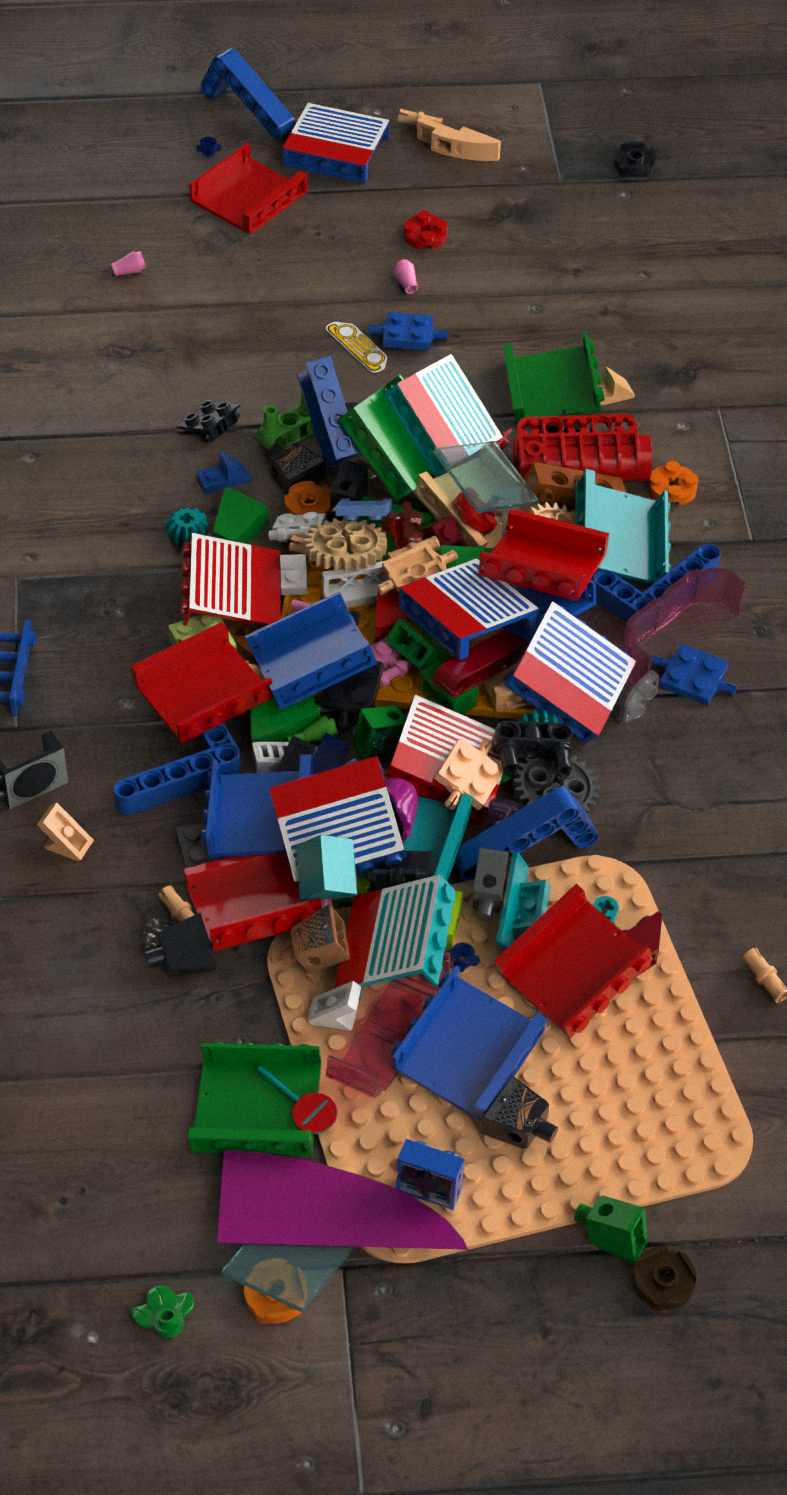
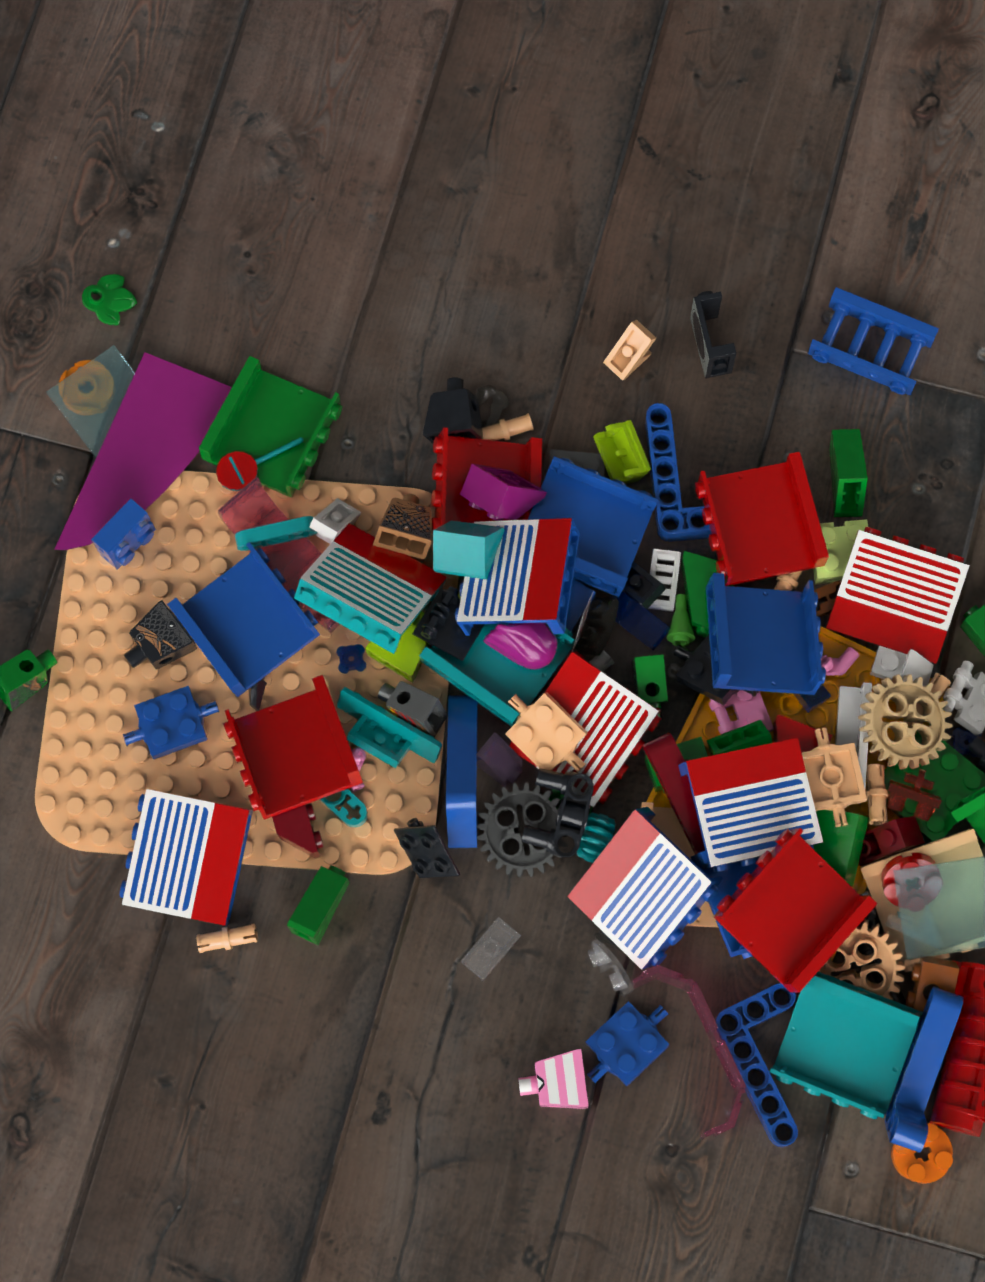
camera: 115 degrees right, 25 degrees up
(123, 648) = (847, 472): none -> green slope
(171, 811) = (622, 452): none -> lime hinge
(256, 871) = (500, 492): none -> magenta slope
(369, 1048) = (275, 533): none -> teal beam
(373, 509) = (947, 756): medium blue plate -> none
(594, 1082) = (170, 722): none -> blue plate
(615, 837) = (426, 850): none -> black hinge
(625, 477) = (905, 1115): none -> blue beam
(667, 785) = (490, 948): none -> clear plate
(702, 908) = (318, 904): none -> green slope
(717, 1021) = (186, 857): none -> panel
(750, 705) = (558, 1081): none -> torso

